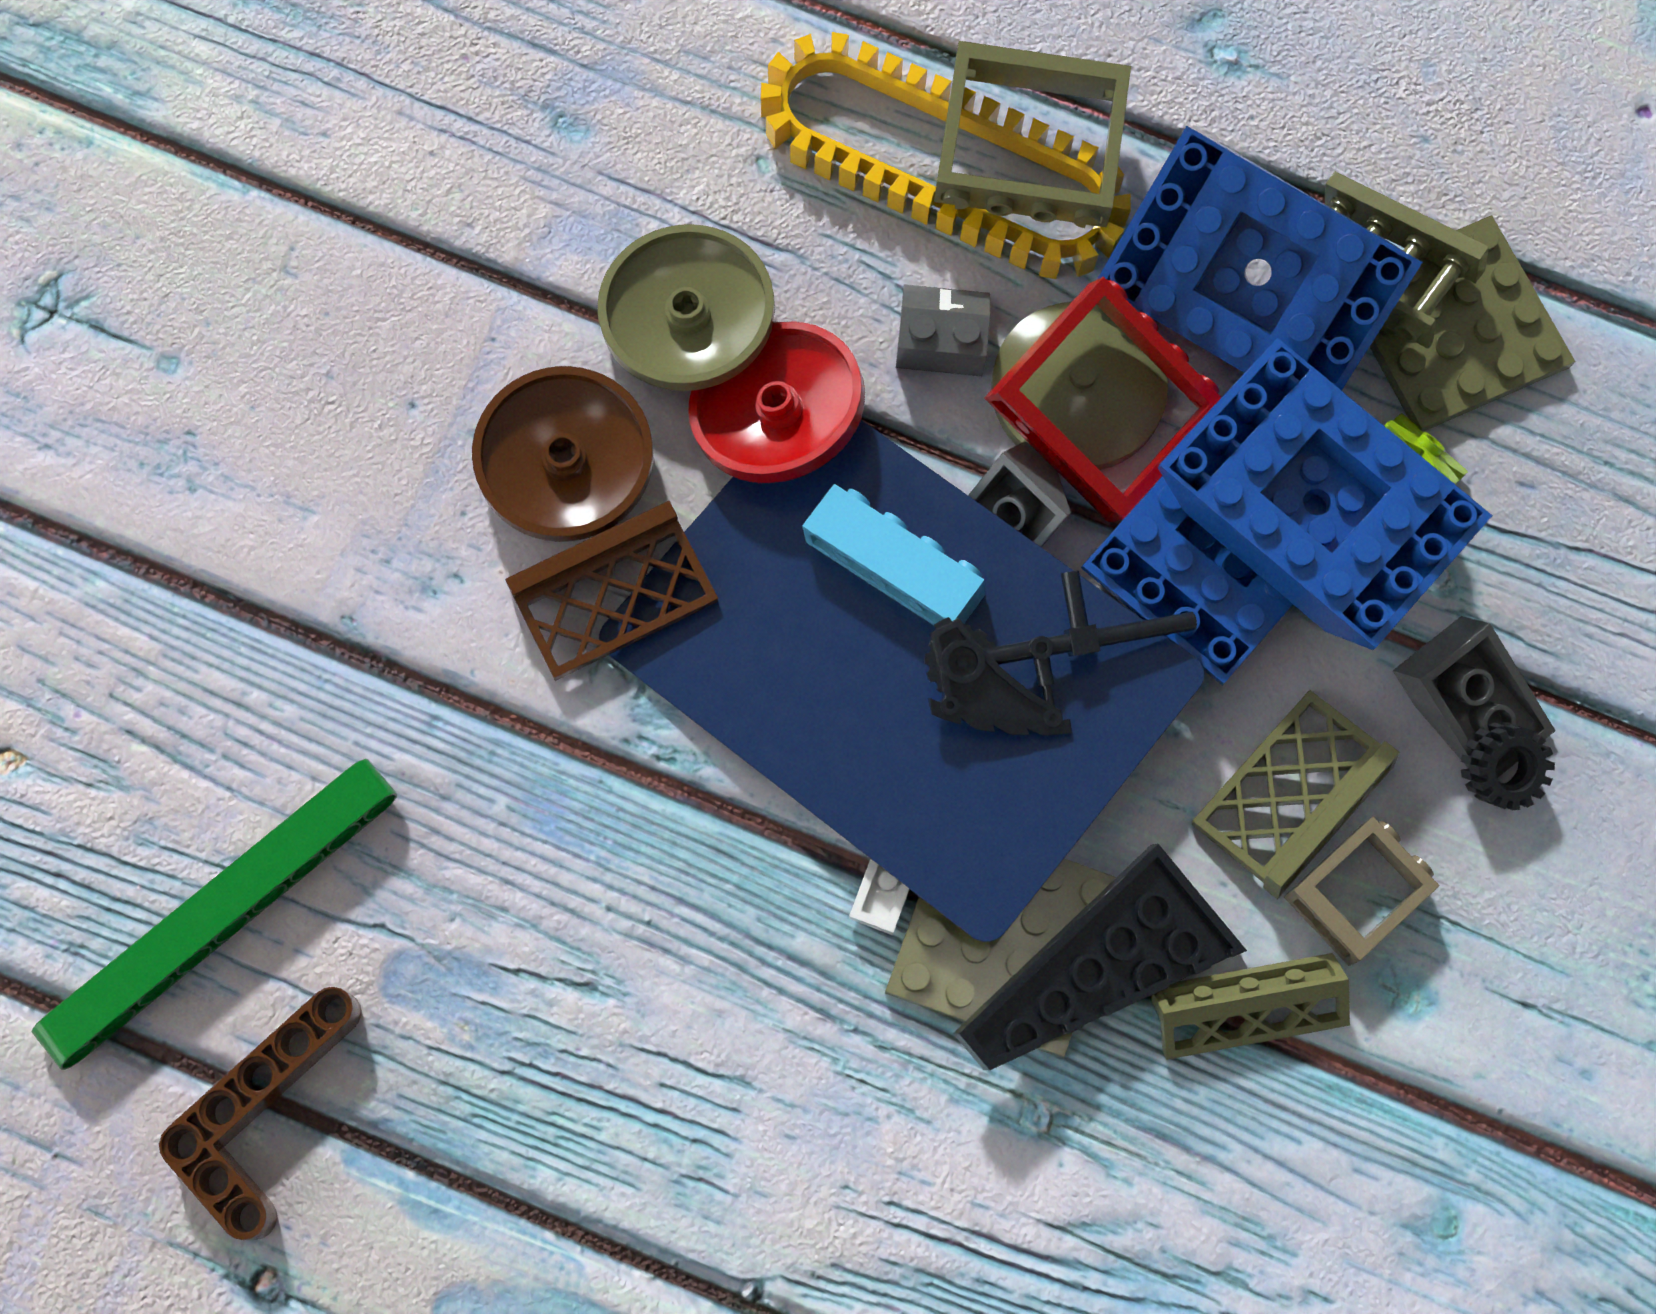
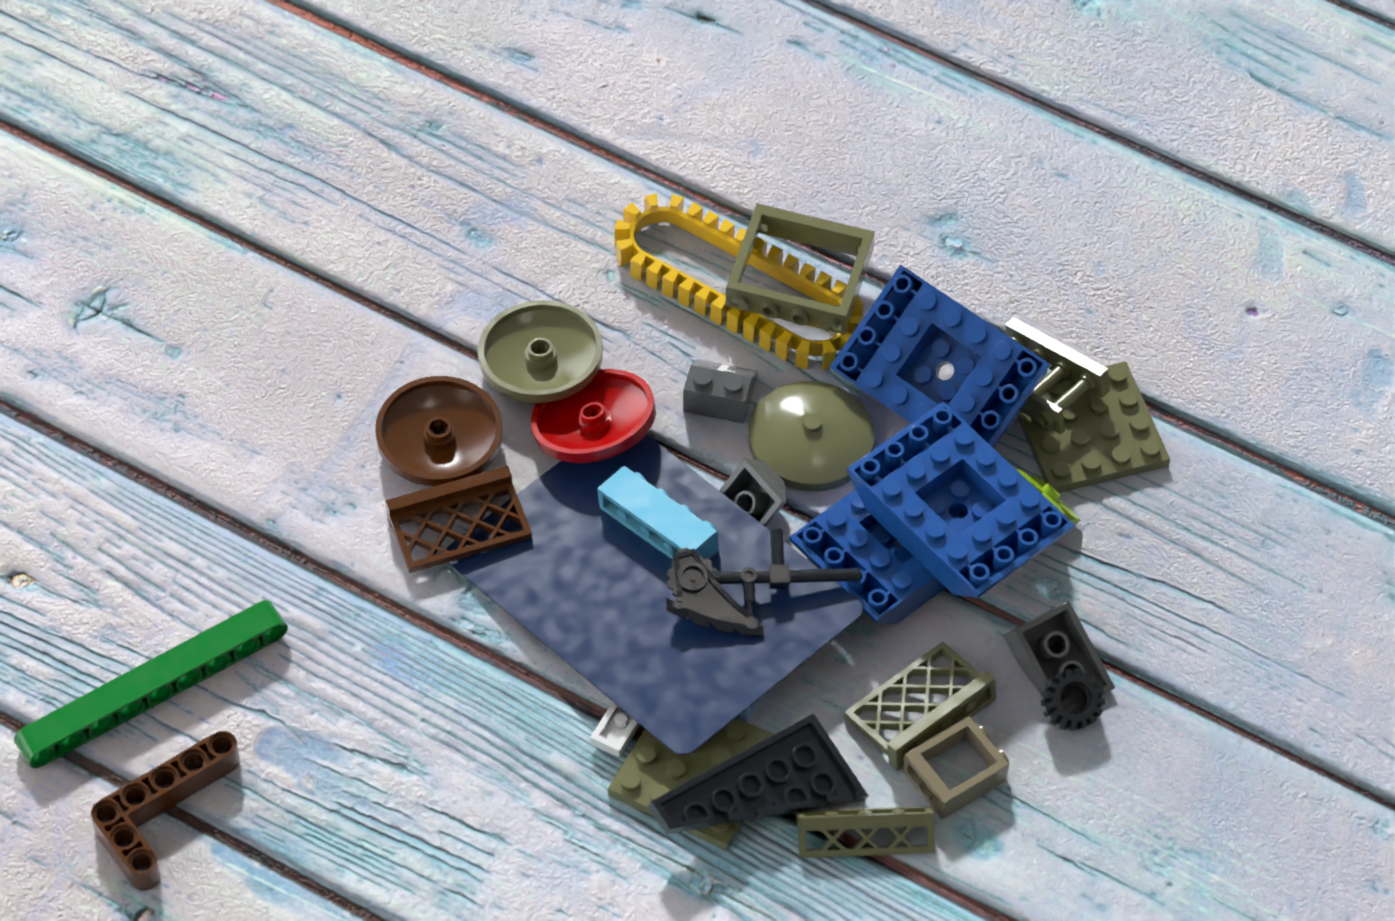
camera: 10 degrees right, 20 degrees down
(1053, 444) = (778, 455): red window -> none

